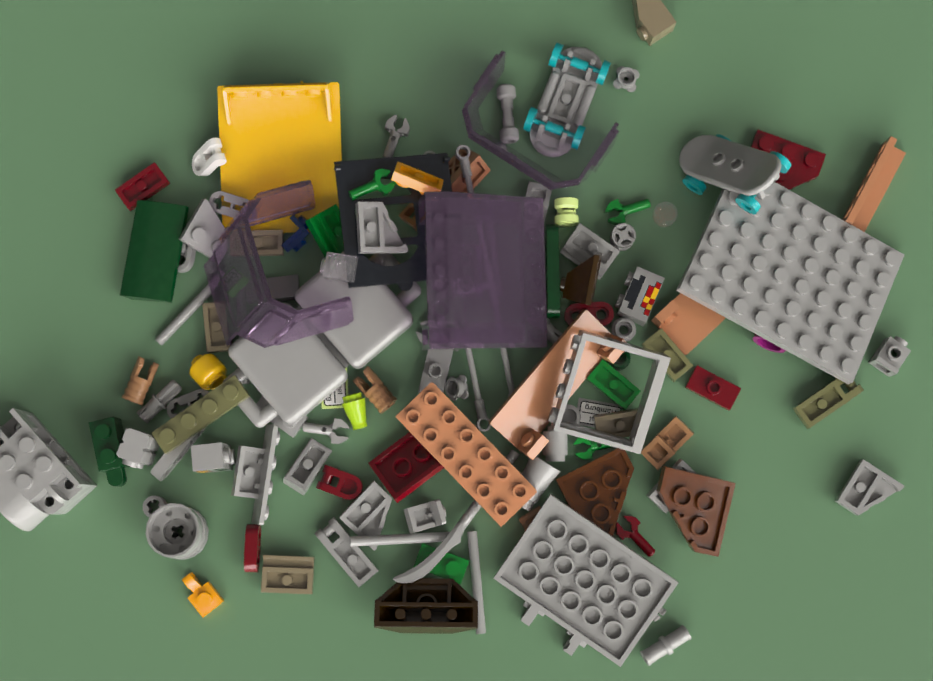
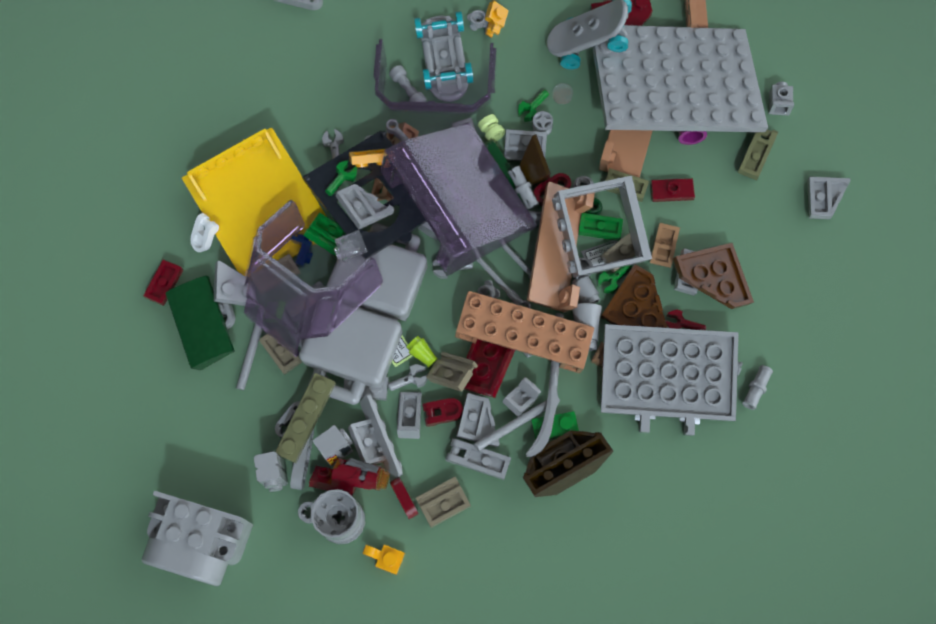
camera: 25 degrees left, 10 degrees down
(106, 439) = (248, 487): dark green brick -> none
(137, 386) = (243, 428): medium nougat hinge -> none
(159, 401) = (266, 431): light grey axle -> none
(207, 371) = (291, 386): yellow head -> none
(210, 496) = (349, 475): none -> dark red plate
(233, 199) = (237, 252): light grey beam -> none
(371, 450) = (452, 371): none -> dark tan plate
(378, 393) = (431, 330): medium nougat hinge -> none
(436, 368) = (461, 284): light grey plate -> none
(476, 579) = (579, 411): light grey piece -> none
(556, 300) = (523, 187): none -> light grey pin
(639, 296) = (580, 155): brick -> none
(646, 86) = (496, 16): none -> light orange plate

